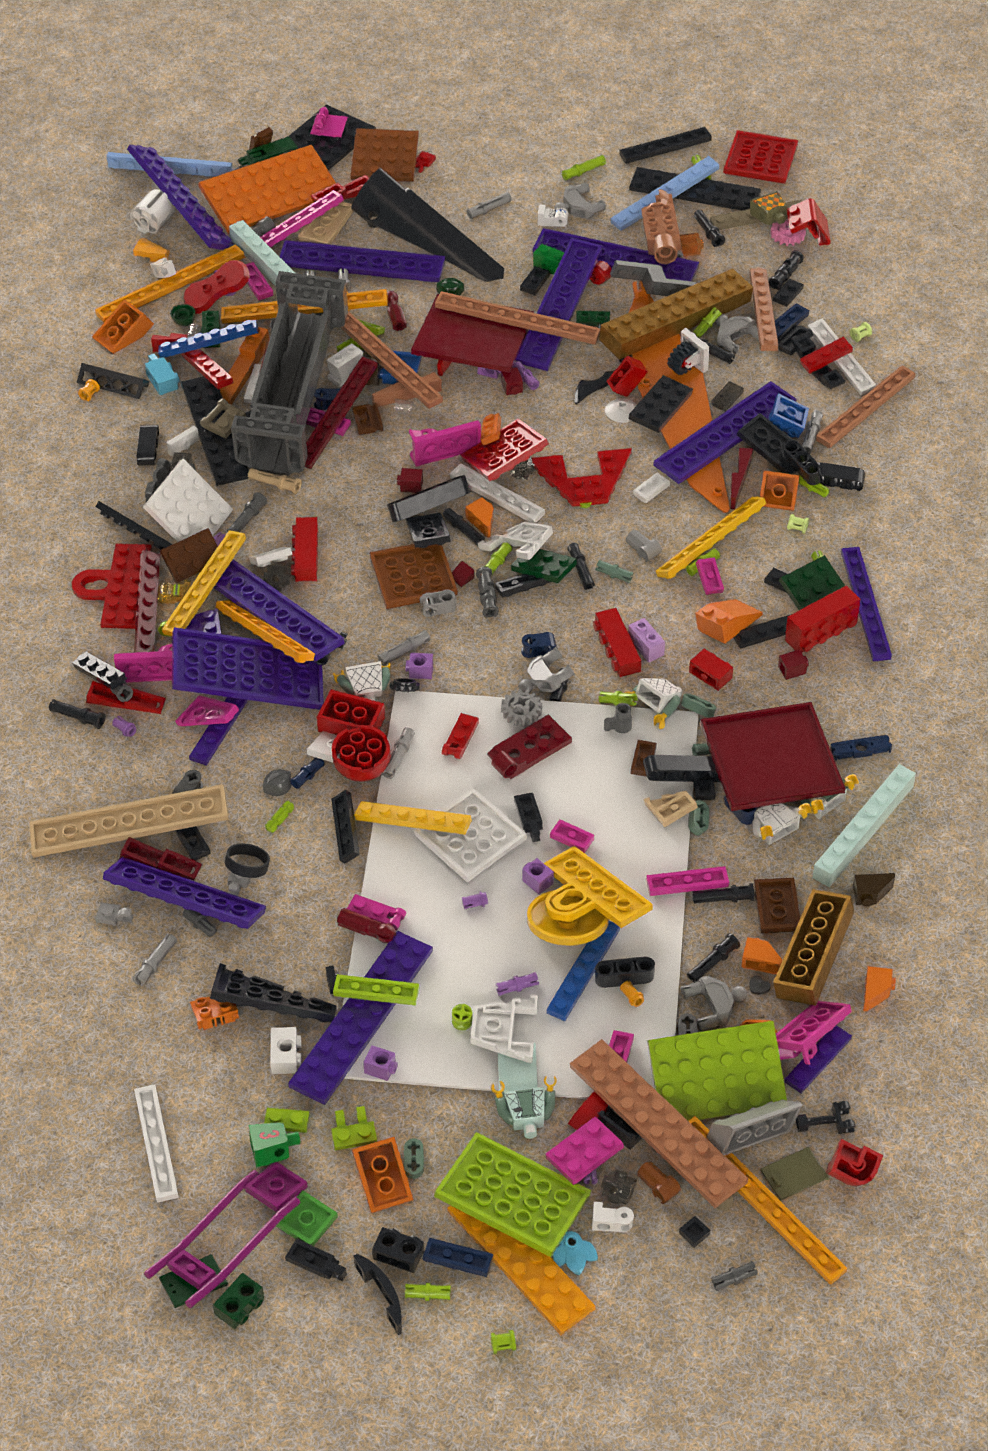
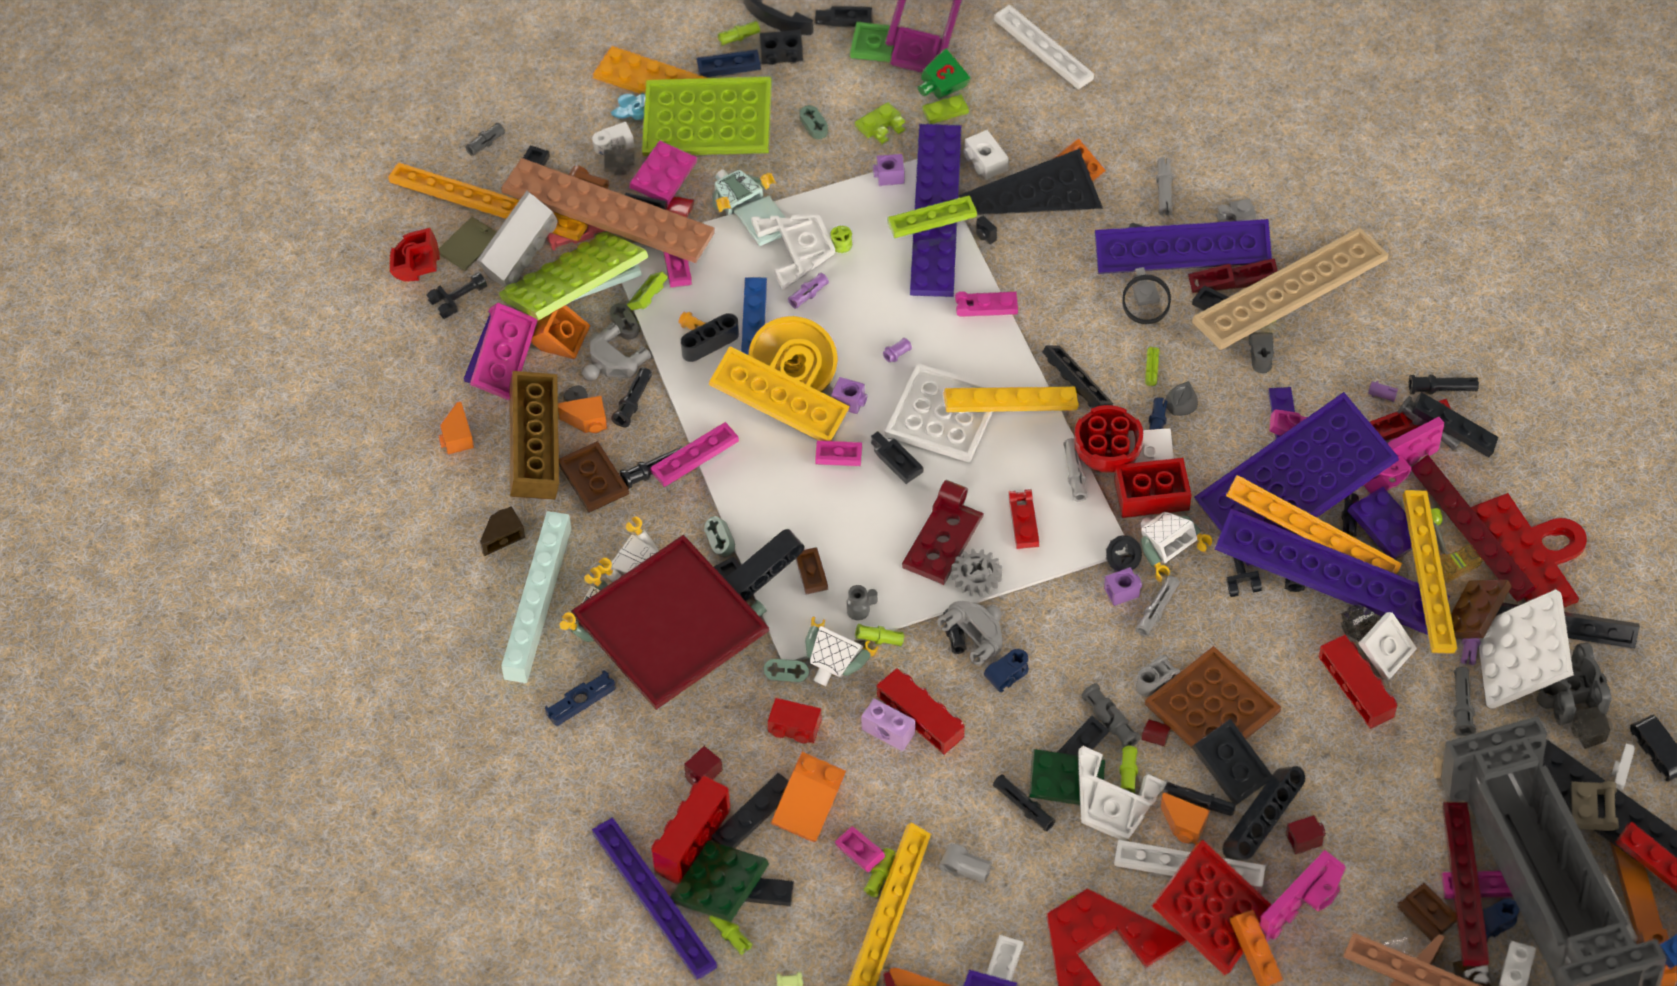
camera: 155 degrees right, 5 degrees up
(365, 925) = (988, 282): dark red piece -> none
(382, 1174) = (834, 96): orange slope -> none
(503, 1341) = (655, 20): lime bush -> none
(614, 571) = (979, 812): sand green pin -> none
(664, 1029) = (650, 287): none -> lime plate
(671, 807) = (753, 524): tan wing -> none

